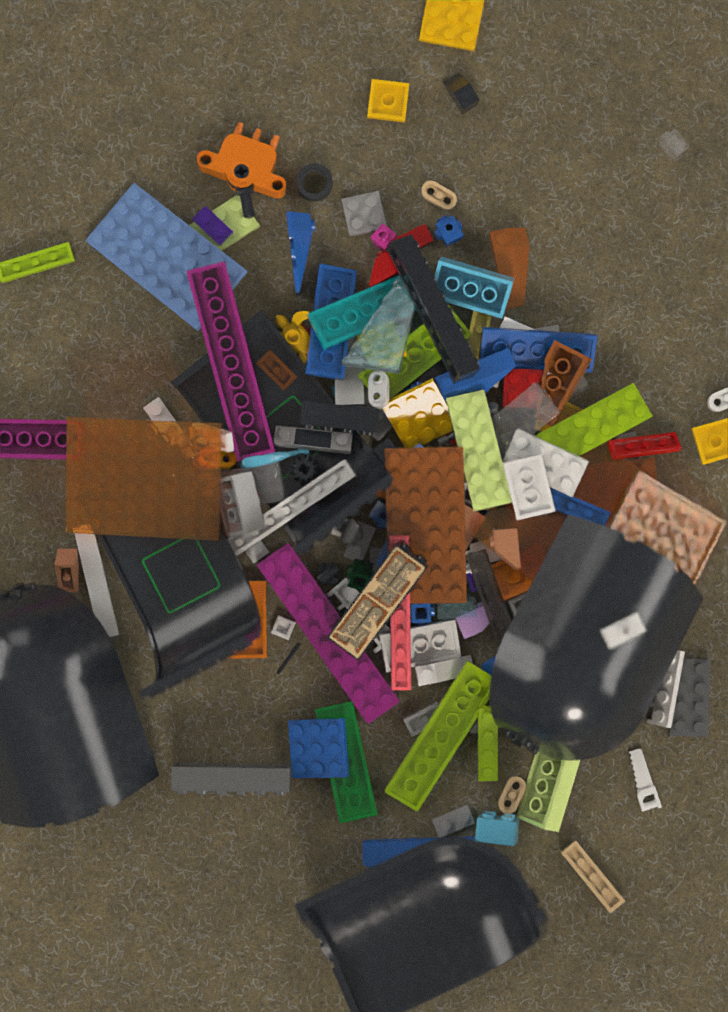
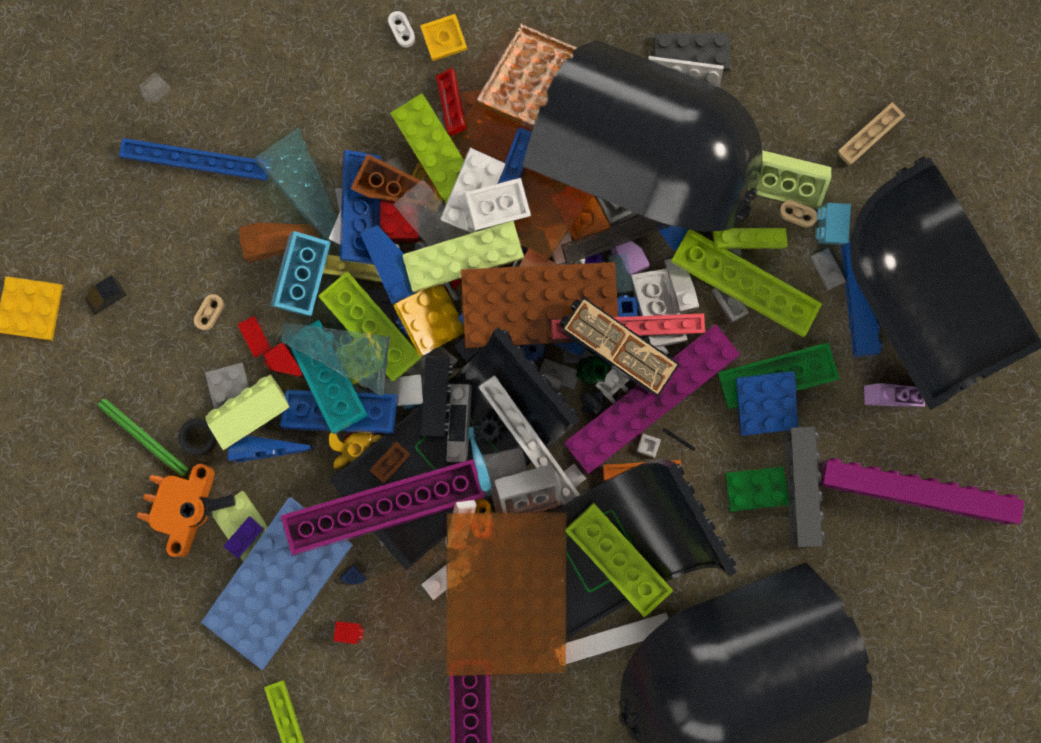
camera: 85 degrees left, 5 degrees down
(67, 569) = (603, 669): nougat slope -> none
(116, 324) = (348, 632): none -> red brick
(170, 331) = (353, 576): none -> dark blue tile
(170, 590) = (618, 560): none -> lime plate
(219, 897) = (921, 492): none -> magenta brick
(234, 732) = (756, 489): none -> green plate
(316, 129) = (143, 437): none -> bright green axle
(320, 869) = (893, 395): none -> lavender slope
(335, 231) = (247, 411): none -> yellowish green slope
(378, 388) = (405, 358): white plate -> none
(383, 237) = (252, 363): dark pink bracket -> none
(388, 100) = (113, 367): yellow plate -> none
(433, 309) = (323, 307): black brick -> none
(448, 237) = (243, 300): blue brick -> none
(506, 546) = (557, 223): nougat slope -> none
(572, 287) = (298, 178): none -> clear light blue wing
(597, 184) = (191, 159): none -> blue plate
(623, 630) = (636, 99): white plate -> none
(644, 782) = (775, 91): white piece -> none

